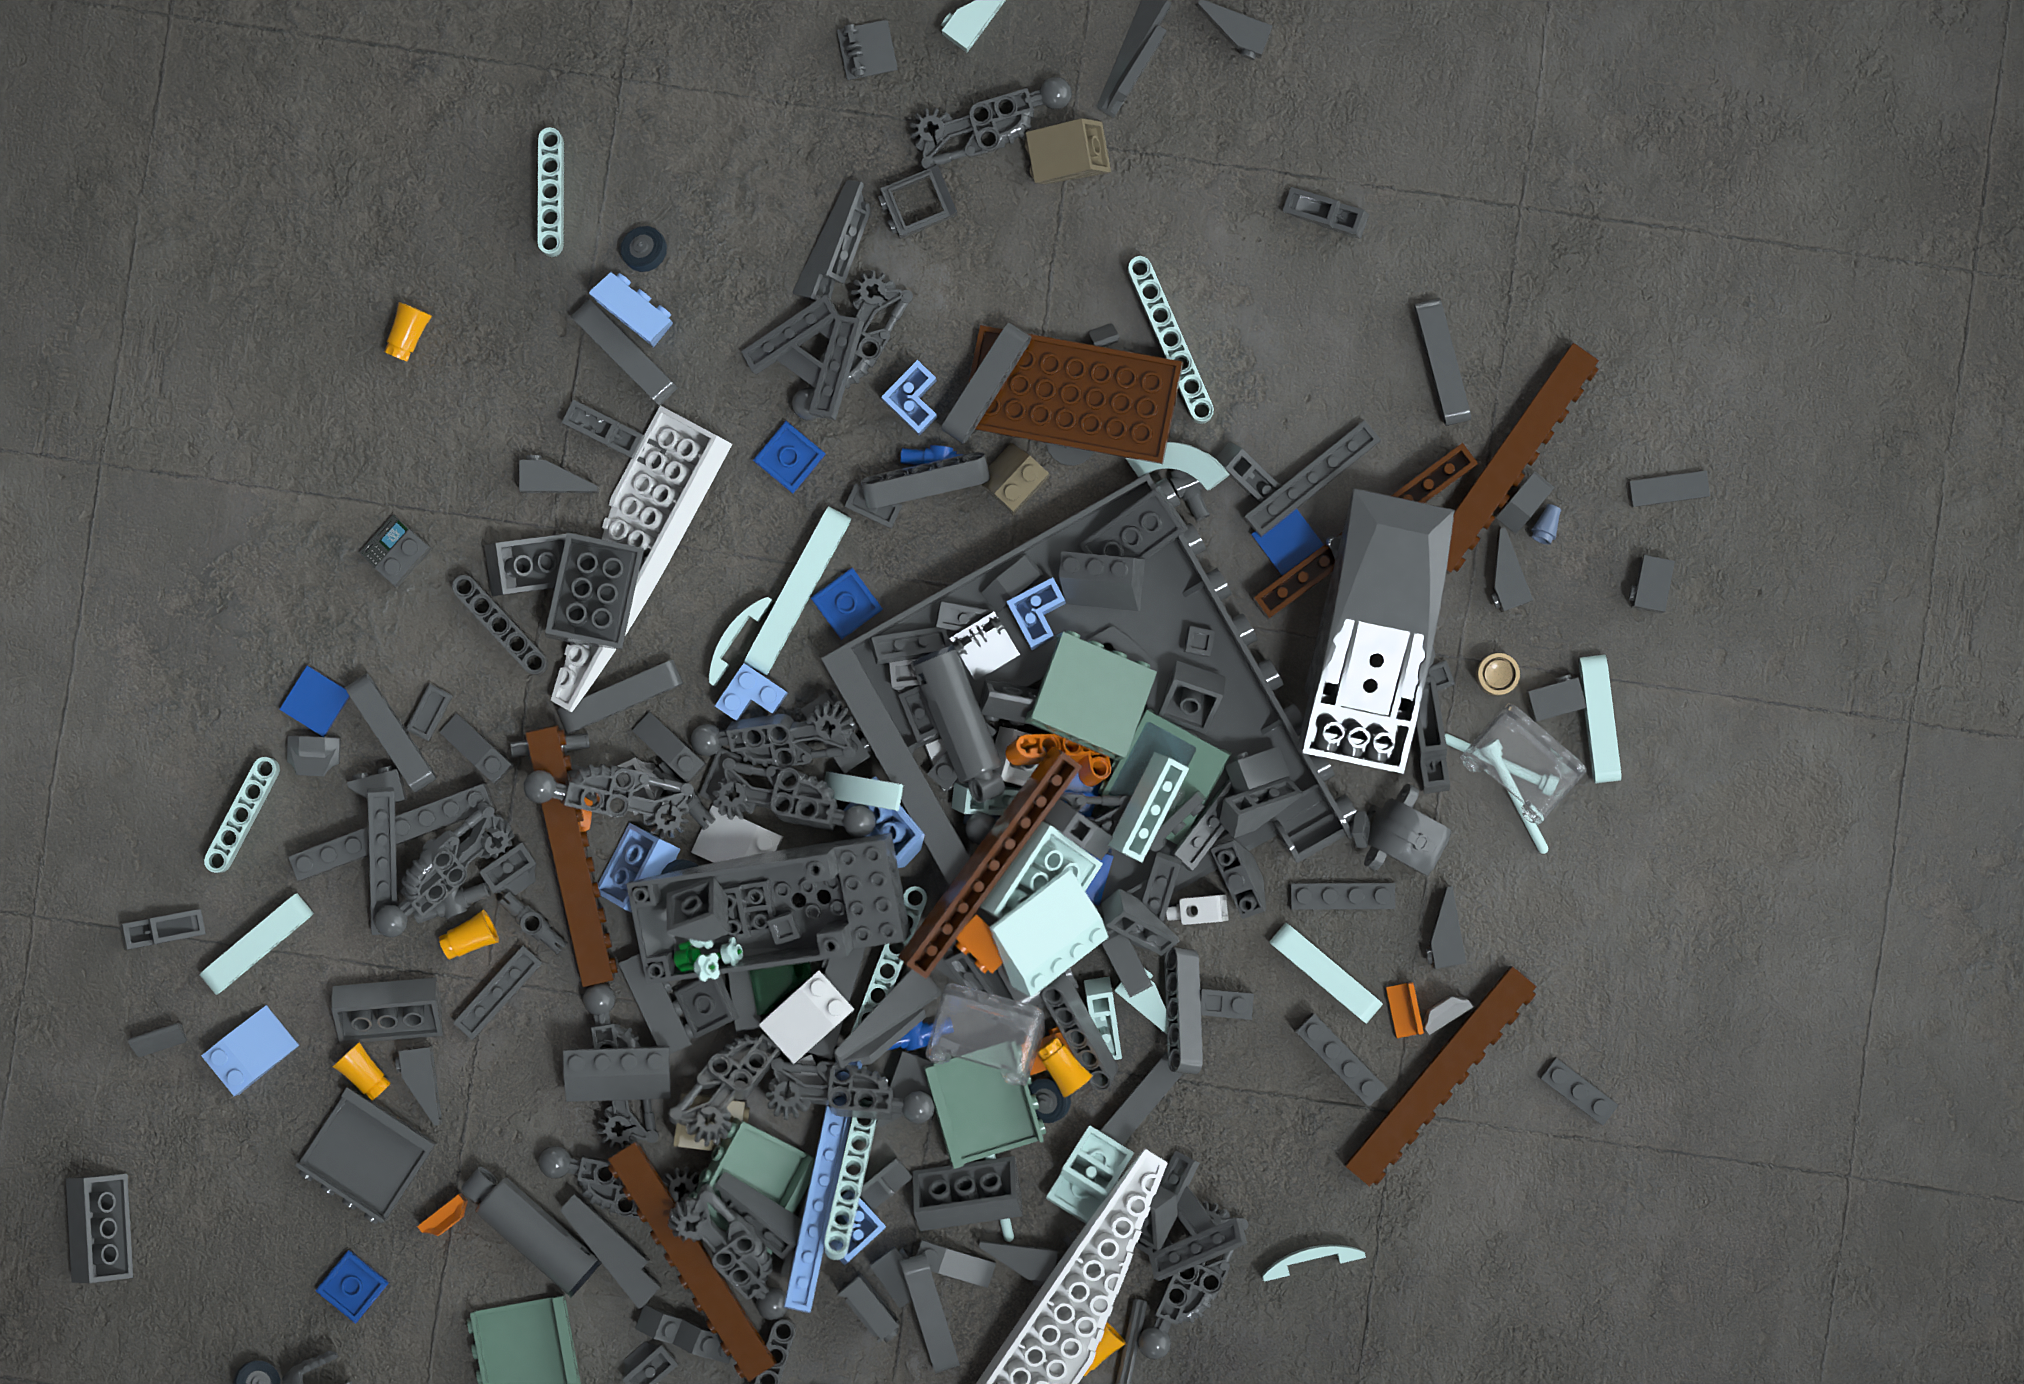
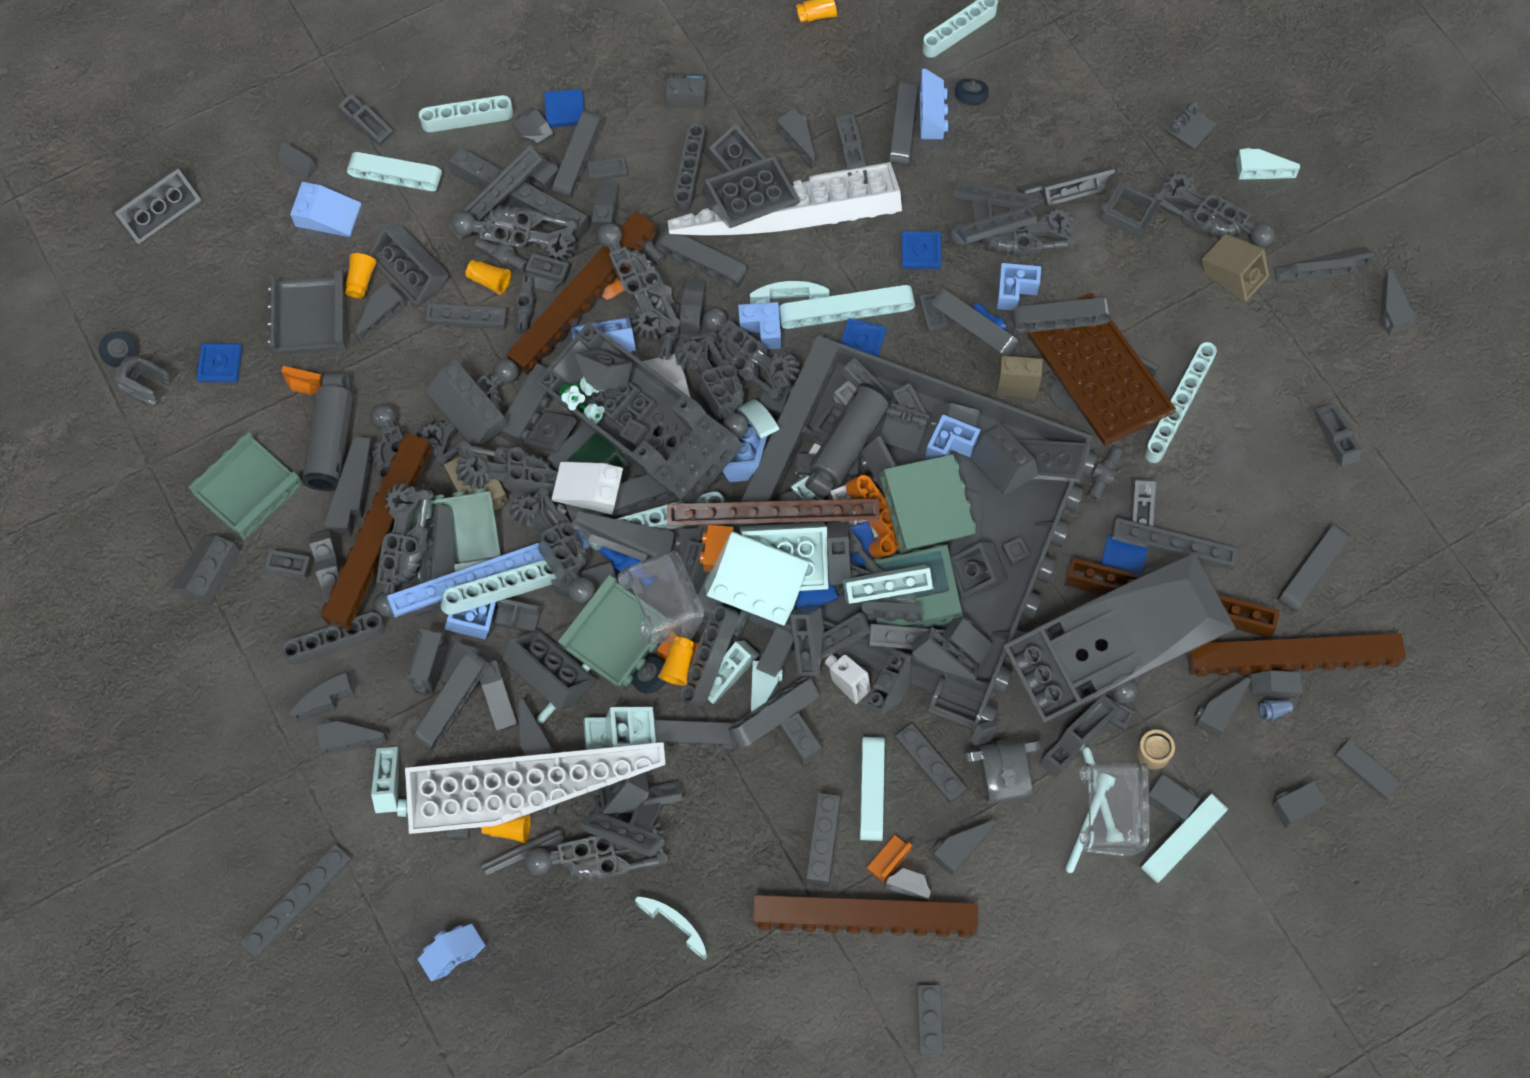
camera: 50 degrees right, 20 degrees down
(1187, 459) = (1119, 457): light aqua tile -> none

